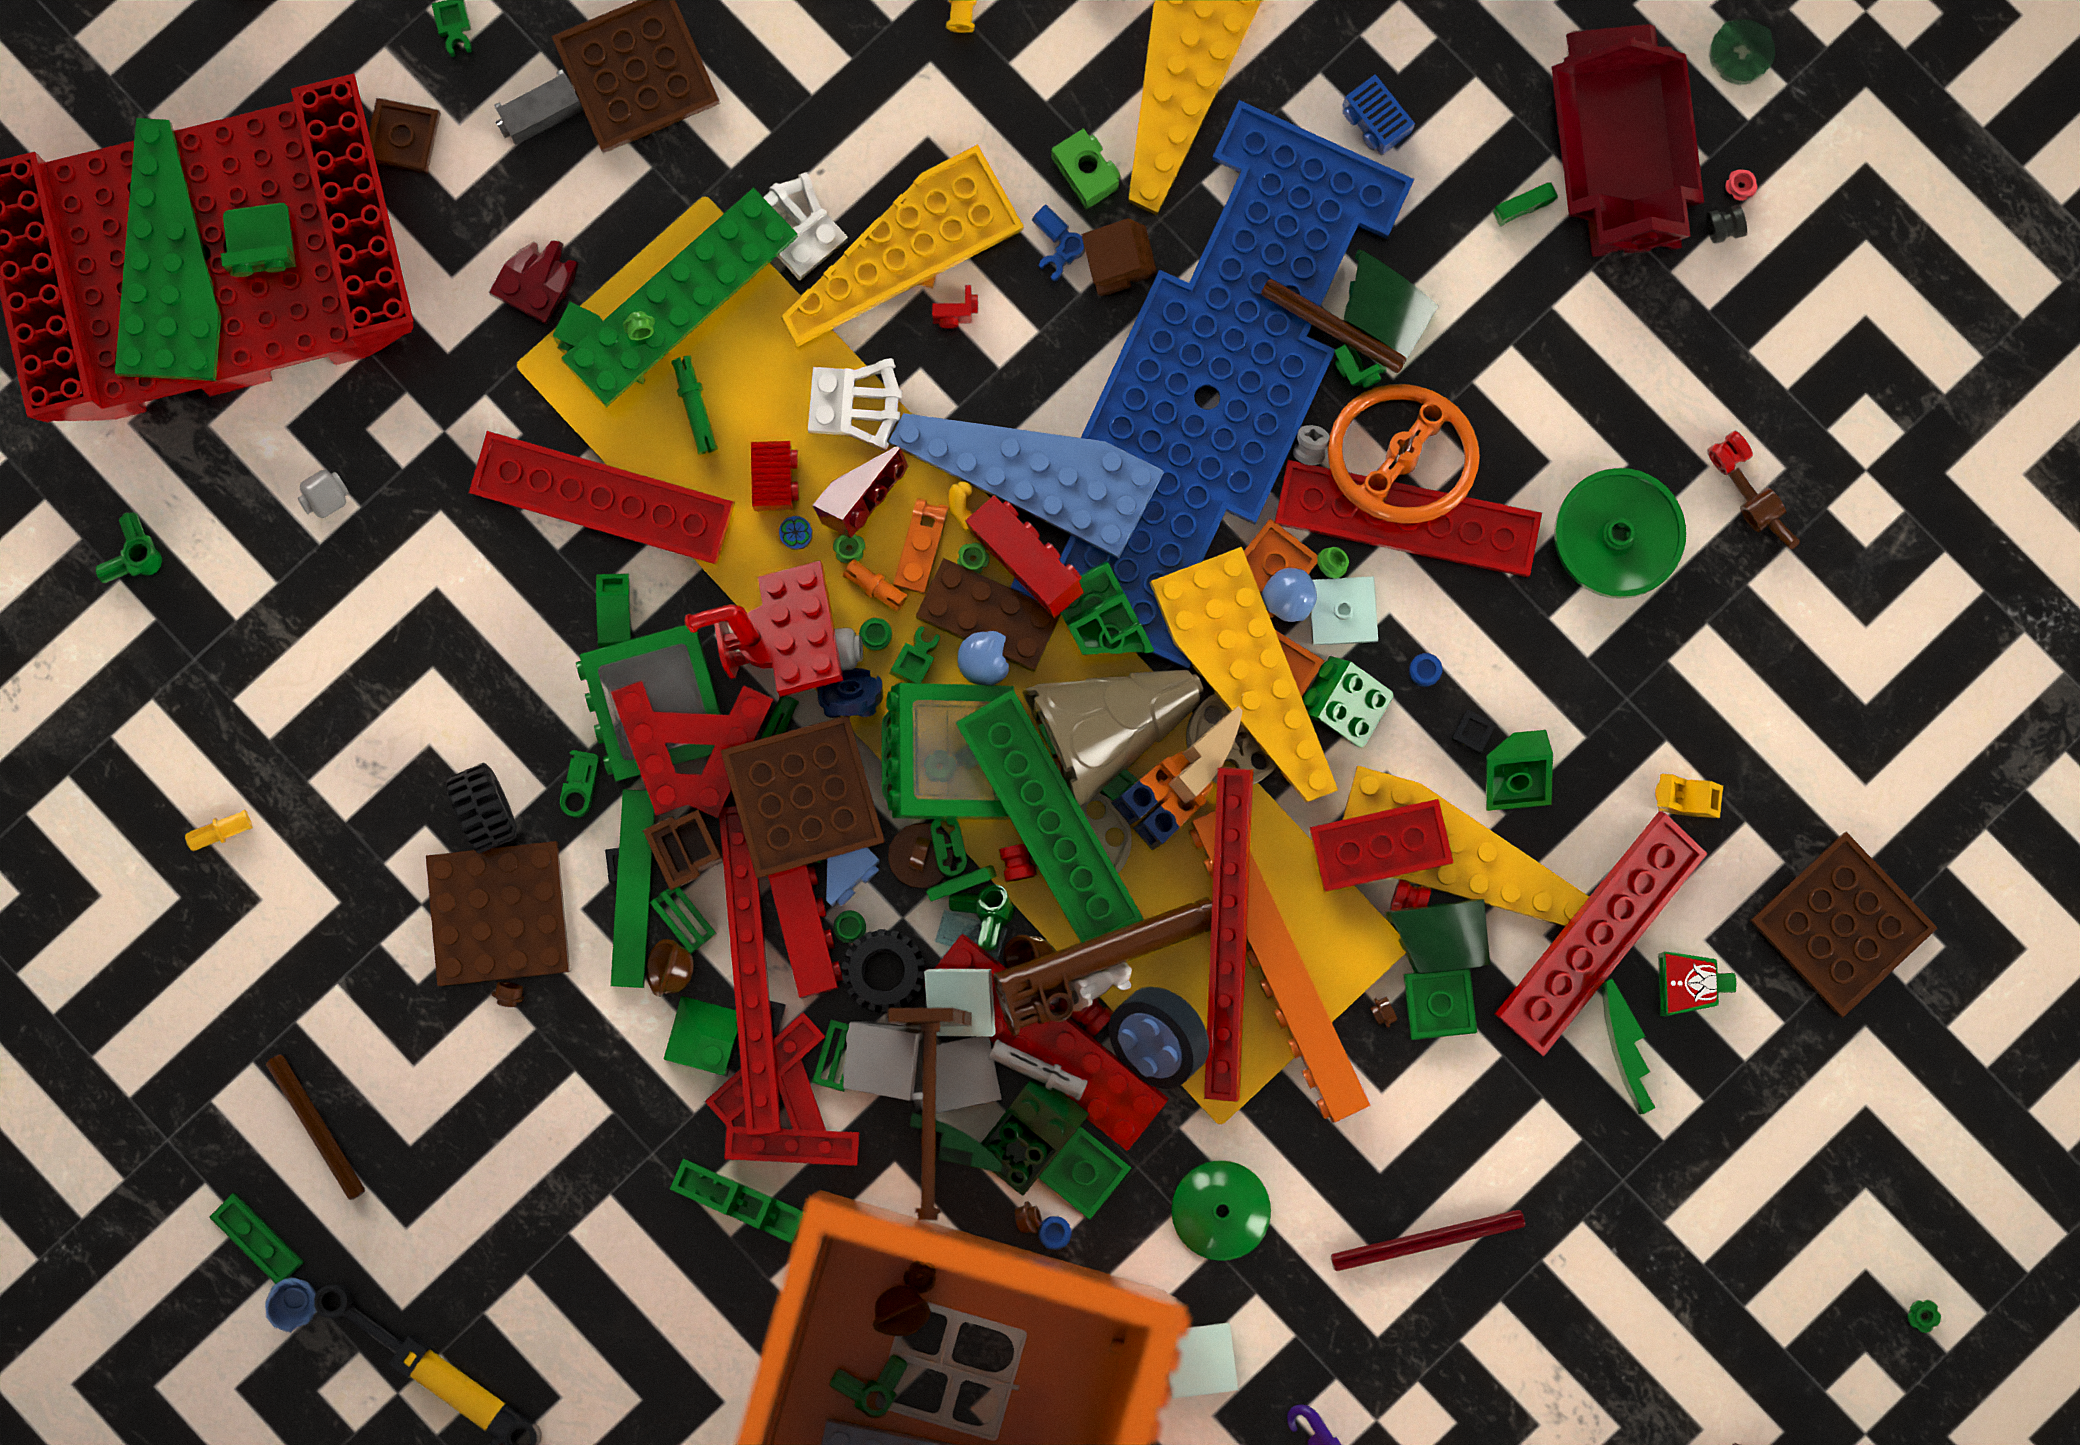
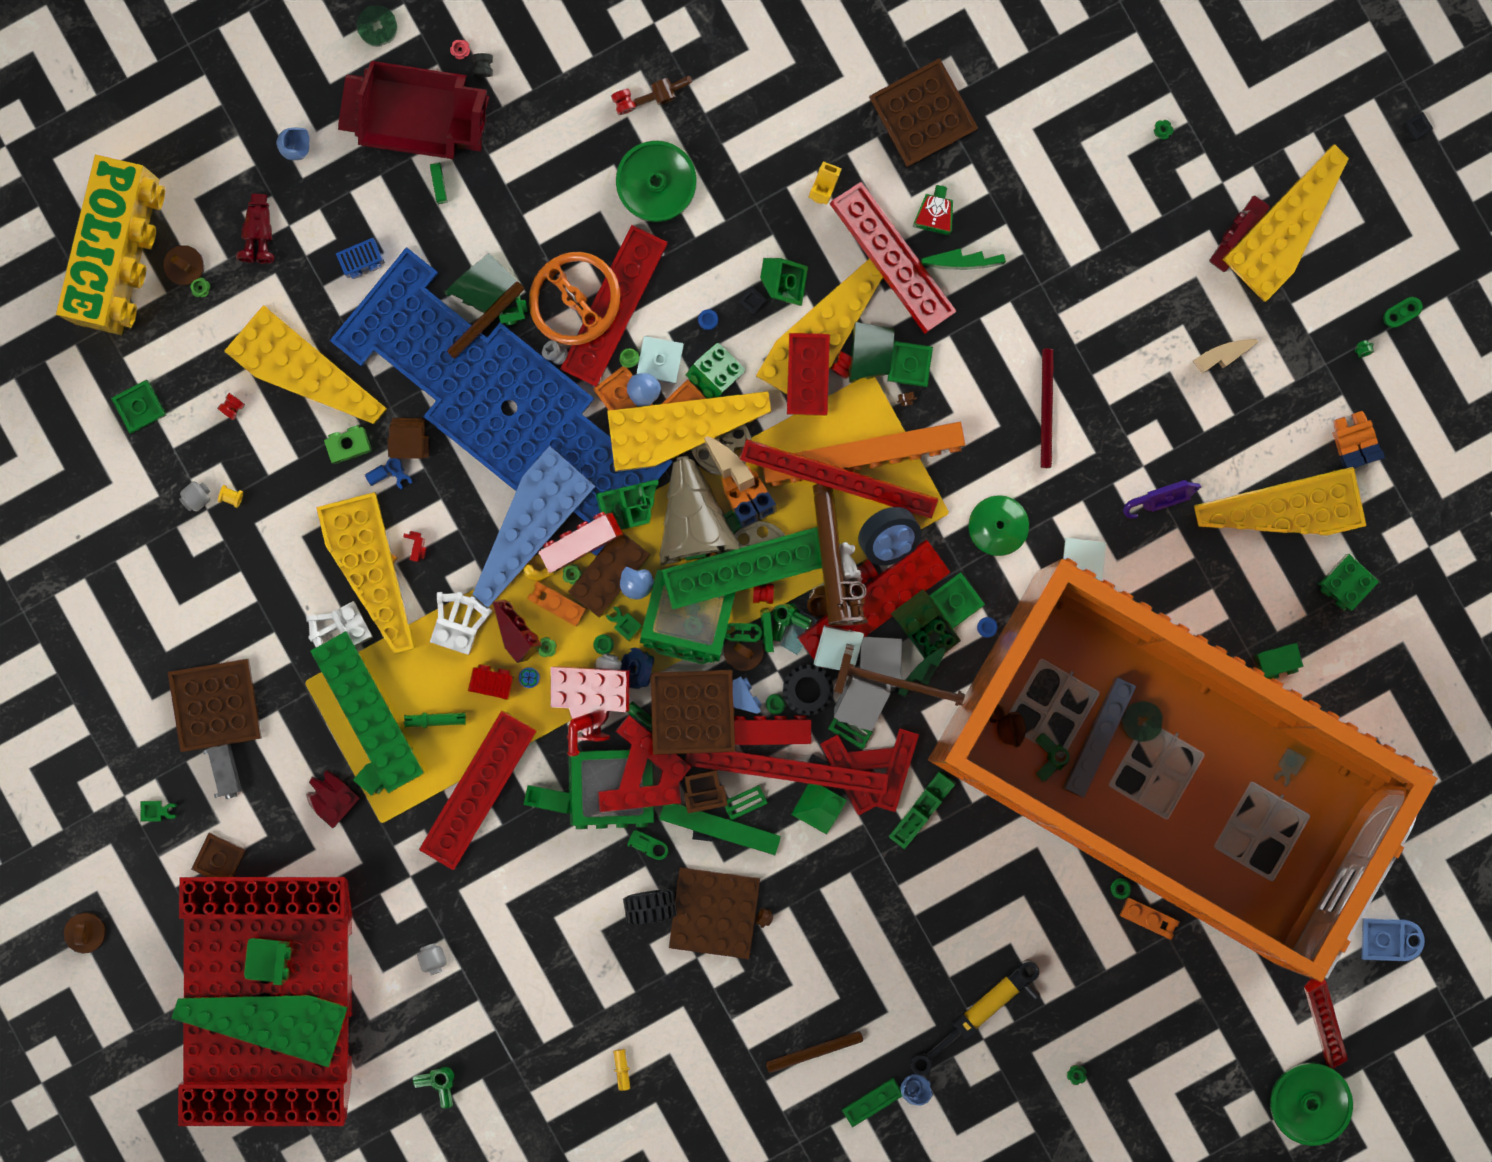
camera: 75 degrees left, 5 degrees up
(639, 326) = (381, 741): bright green plate -> none
(668, 967) = (773, 818): reddish brown helmet -> none
(875, 585) = (574, 637): orange pin -> none
(1028, 1218) = (975, 640): reddish brown plate -> none
(1039, 1070) = (890, 612): light grey pin -> none

